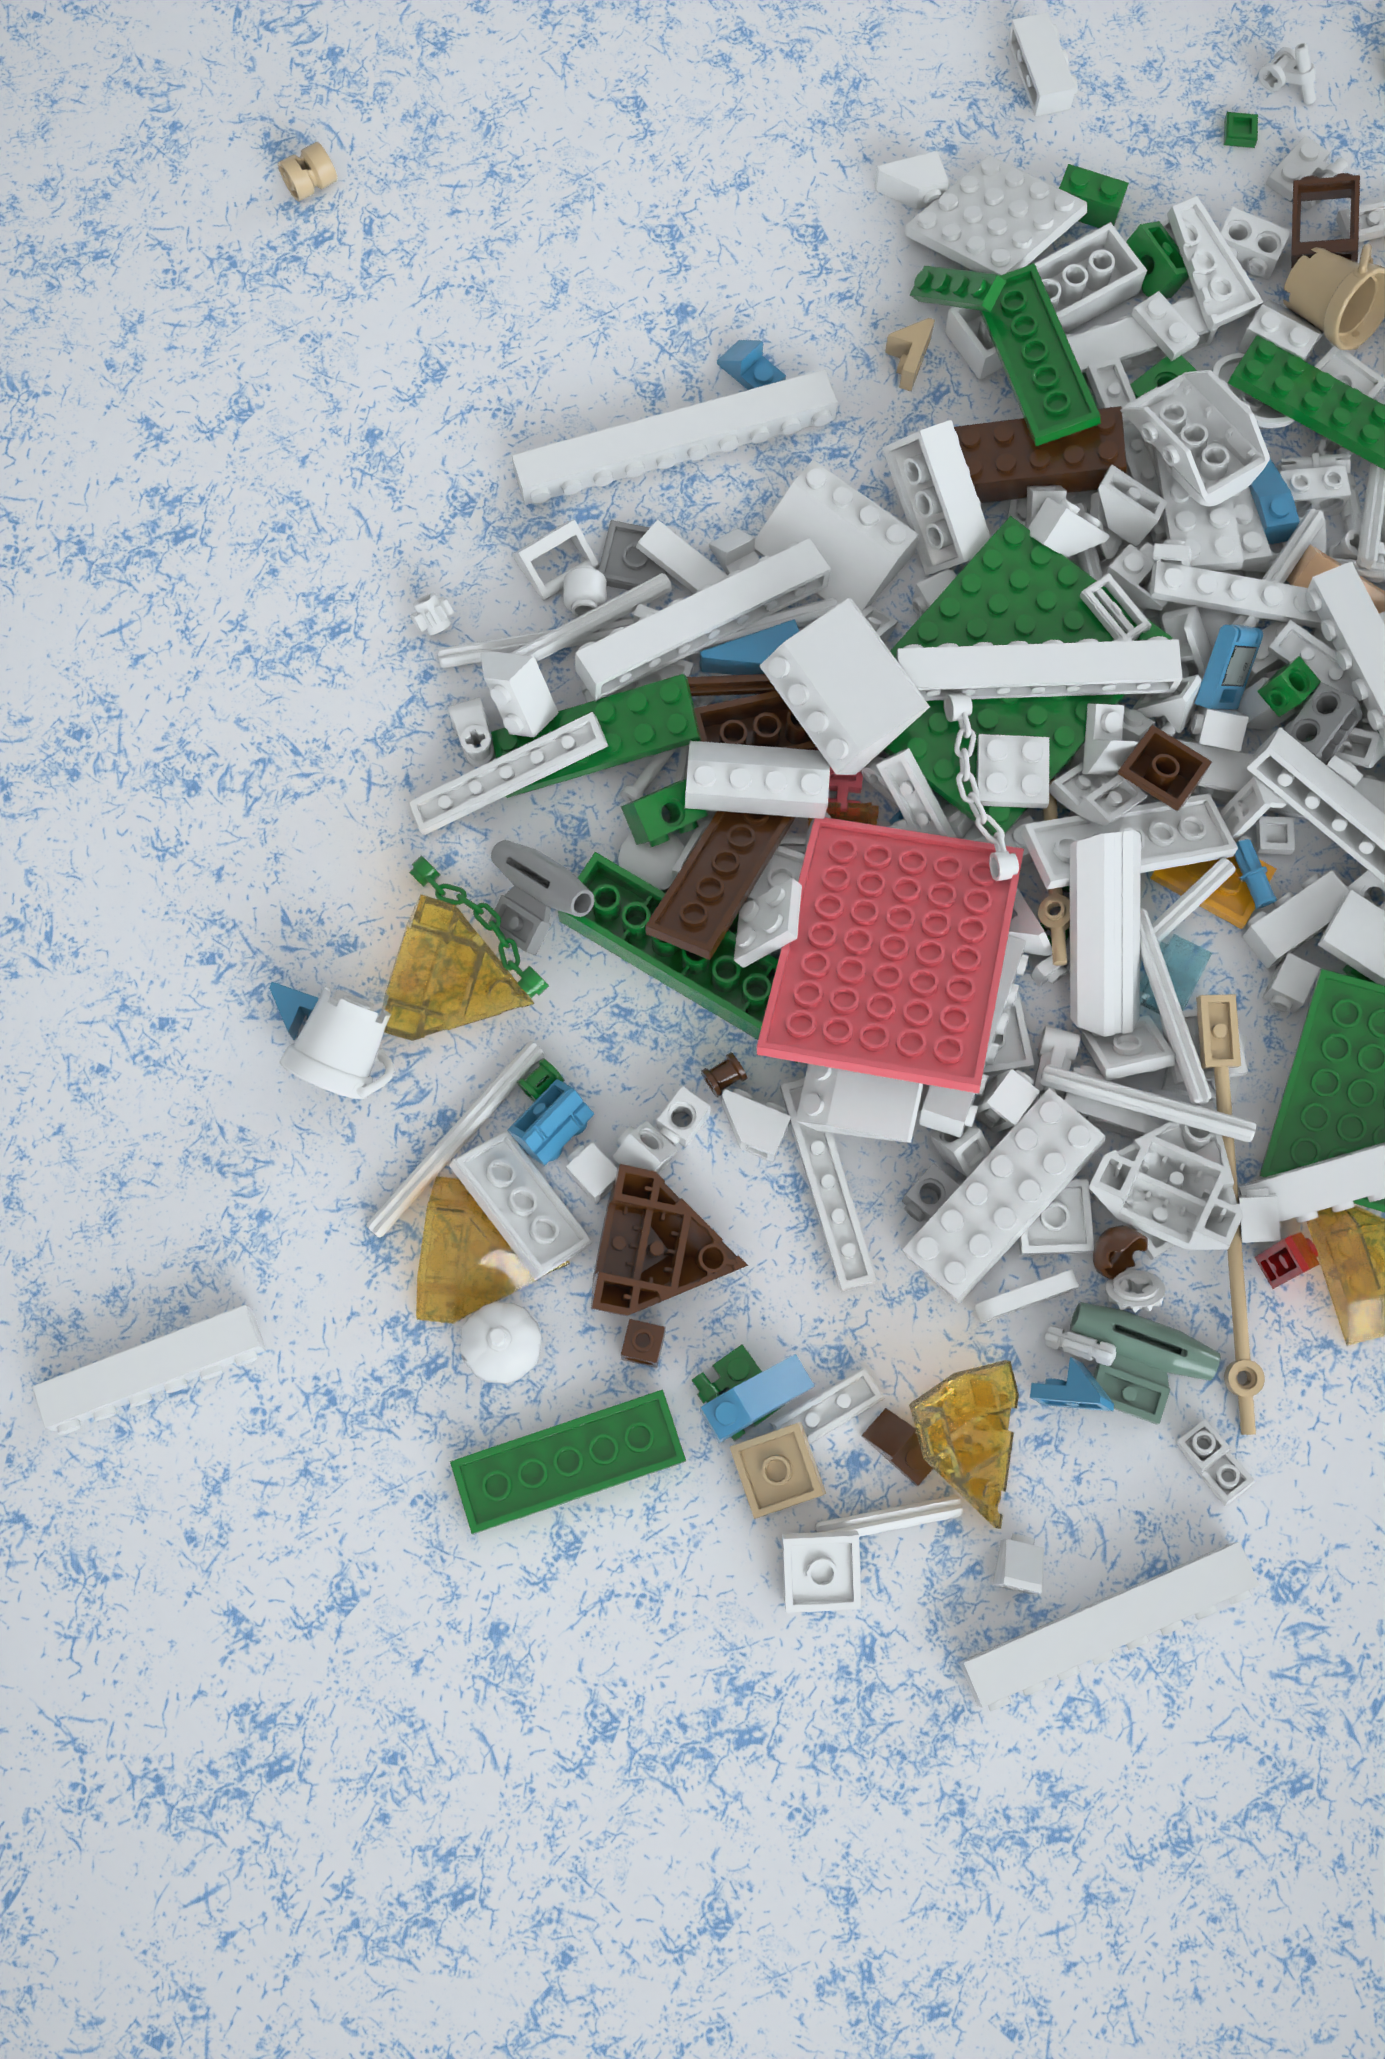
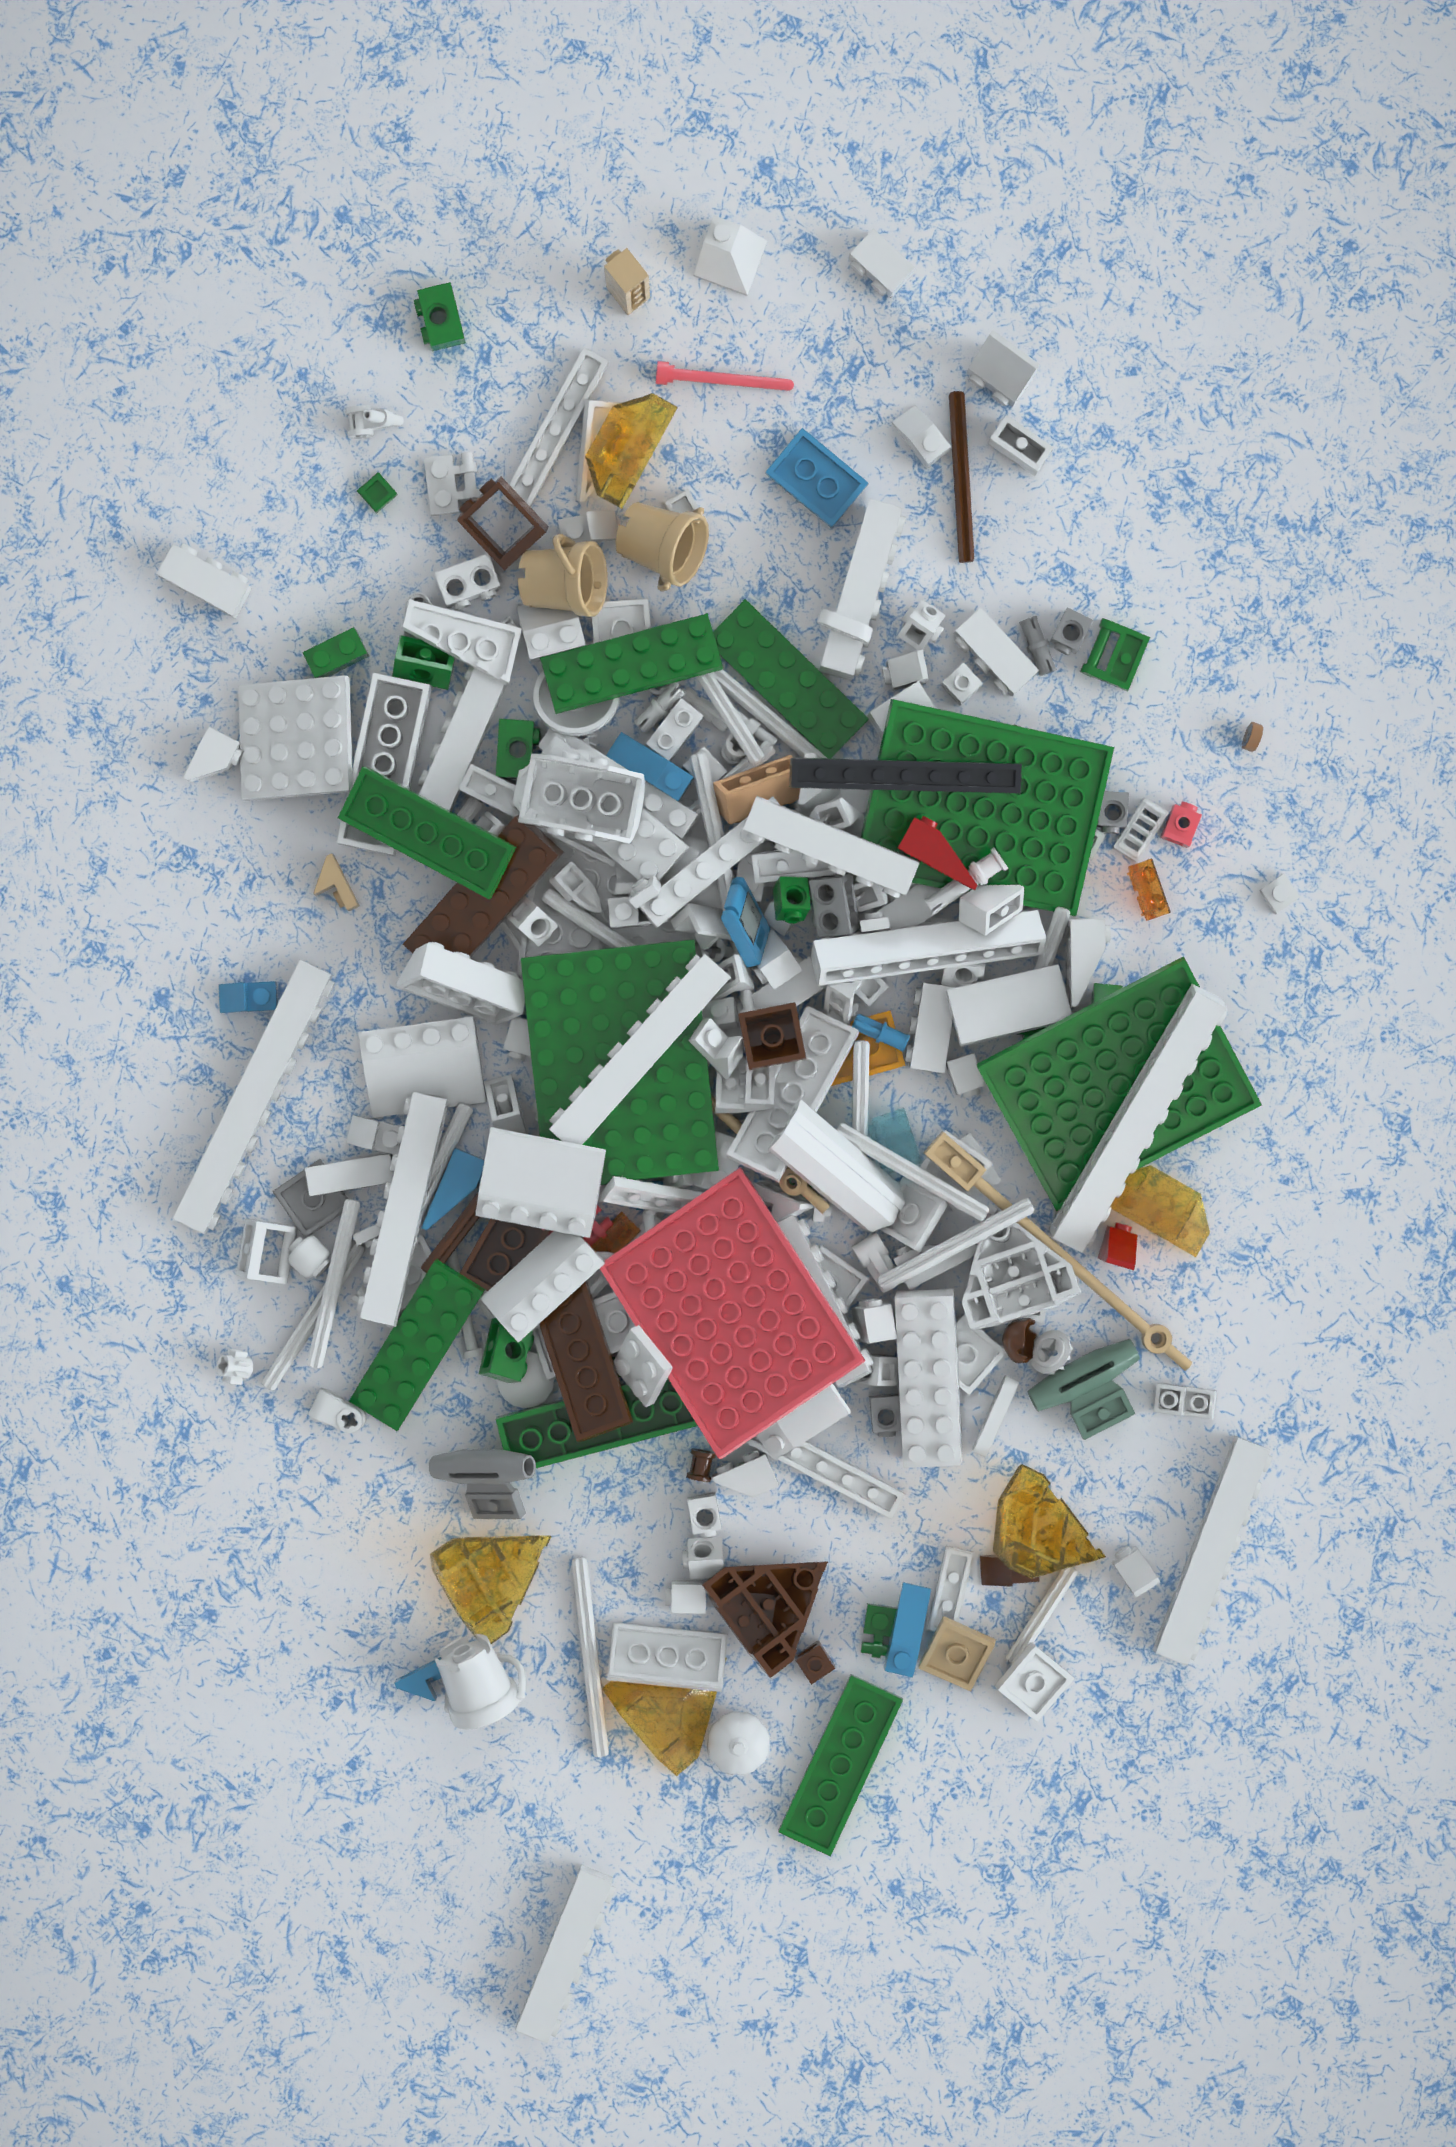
camera: 45 degrees left, 15 degrees up
(508, 773) = (392, 1422): white plate -> none
(518, 692) = (347, 1373): white slope -> none
(530, 980) = (540, 1531): green piece -> none
(544, 1070) = (603, 1577): green bush -> none
(551, 1122) = (635, 1596): dark azure brick -> none
(957, 288) = (328, 826): green plate -> none
(1001, 863) = (740, 1196): white piece -> none
(1013, 771) = (687, 1127): white plate -> none
(1064, 530) = (562, 931): white slope -> none
(1078, 1391) = (1074, 1443): dark azure slope -> none
(1080, 1345) = (1051, 1415): white axle -> none
(1123, 599) = (671, 965): white tile -> none
(1129, 506) = (583, 875): white slope -> none
(1165, 326) = (478, 711): white plate -> none
(1260, 1216) = (1079, 1248): white brick -> none

